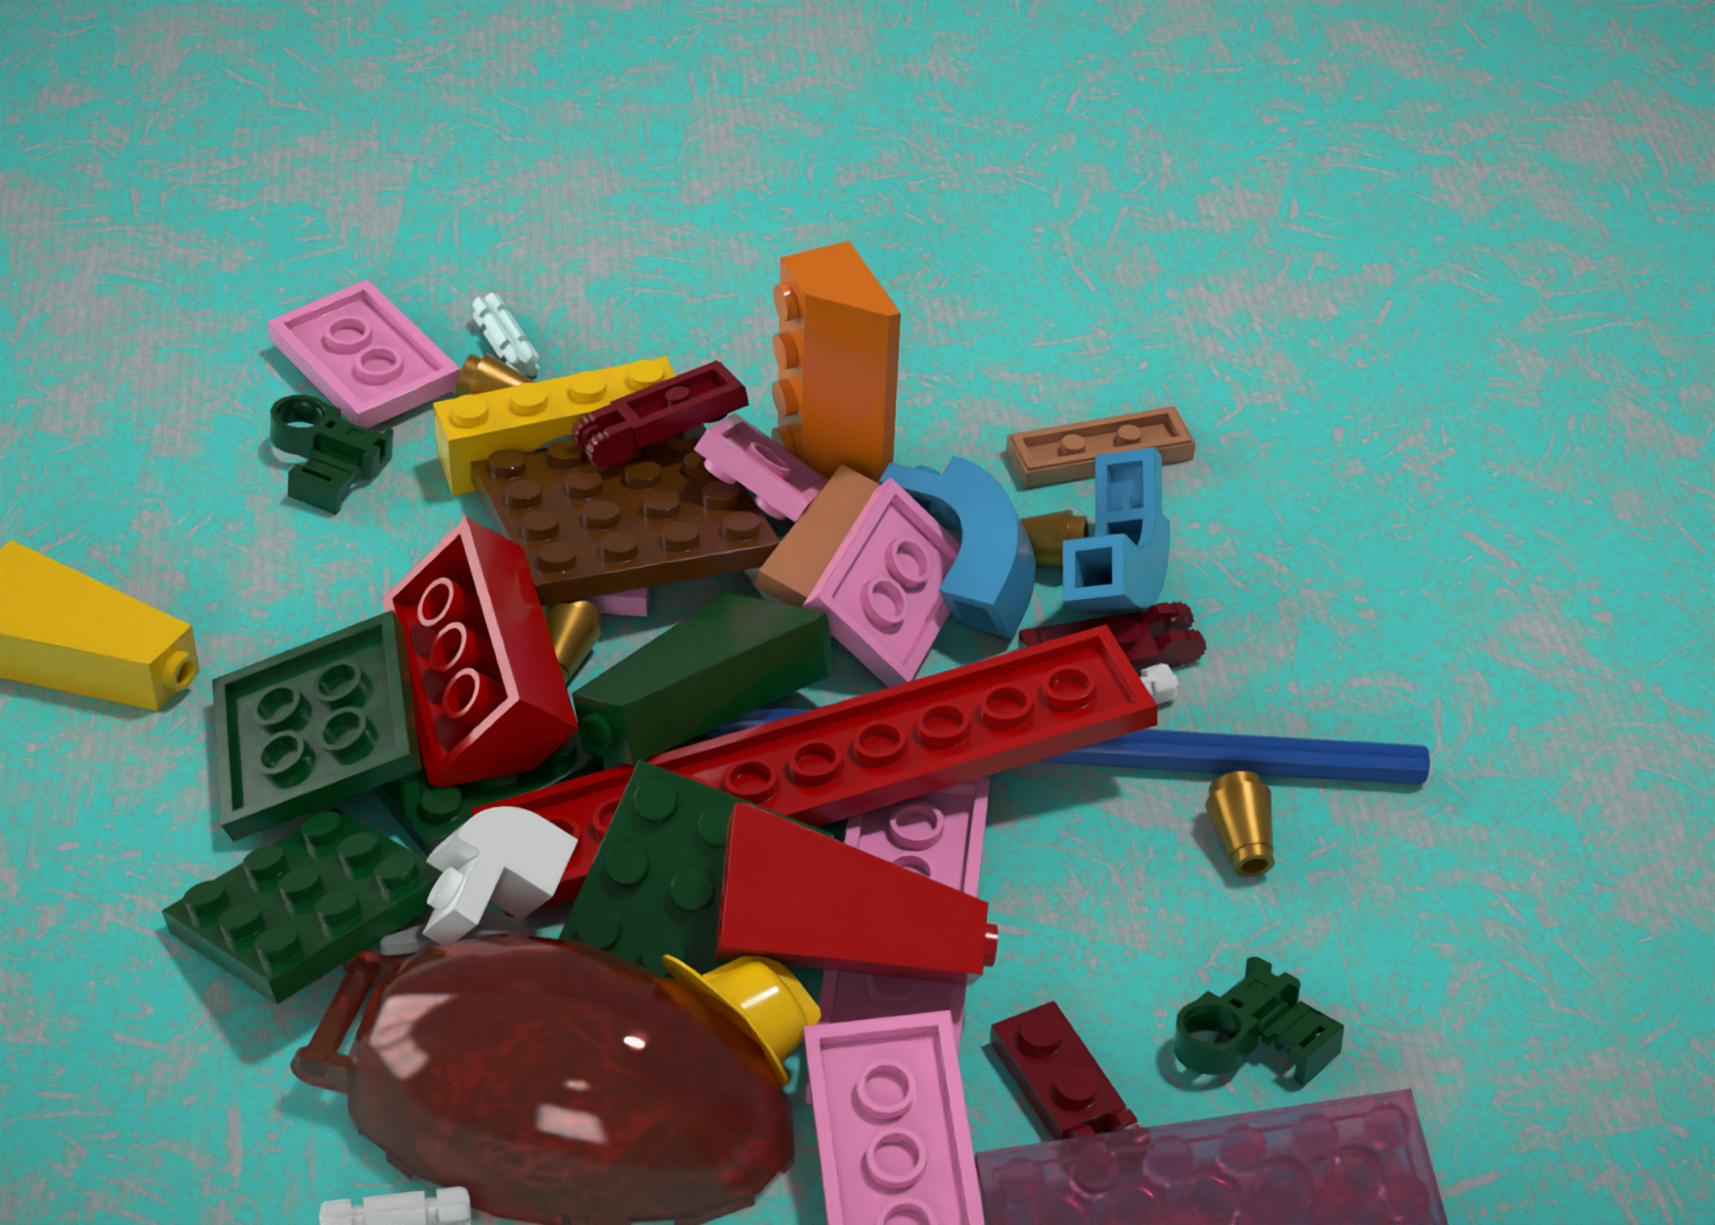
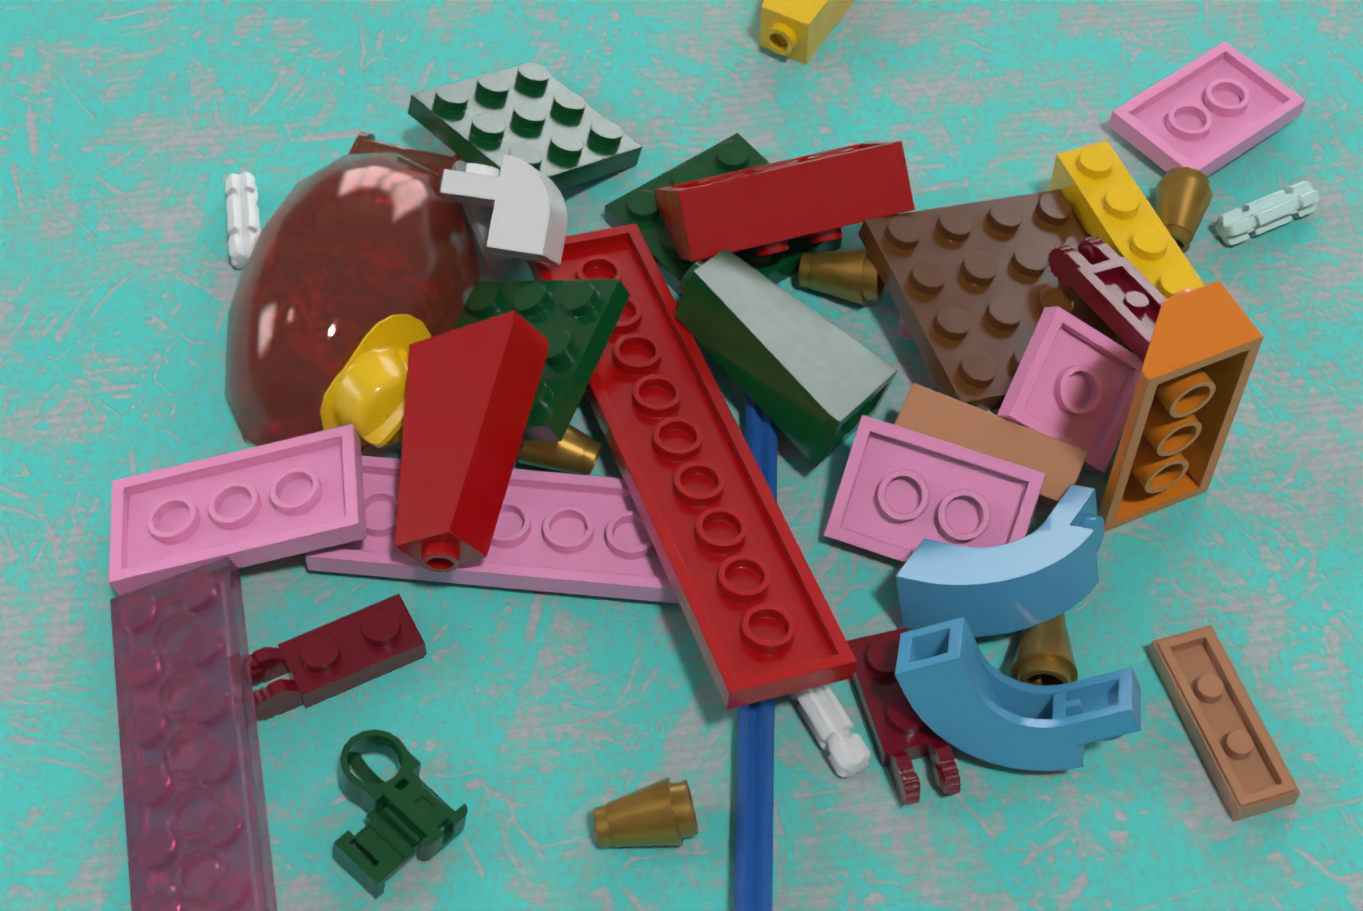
camera: 90 degrees right, 10 degrees up
(314, 726) = (713, 114): dark green plate -> none
(331, 446) = (1079, 107): dark green piece -> none

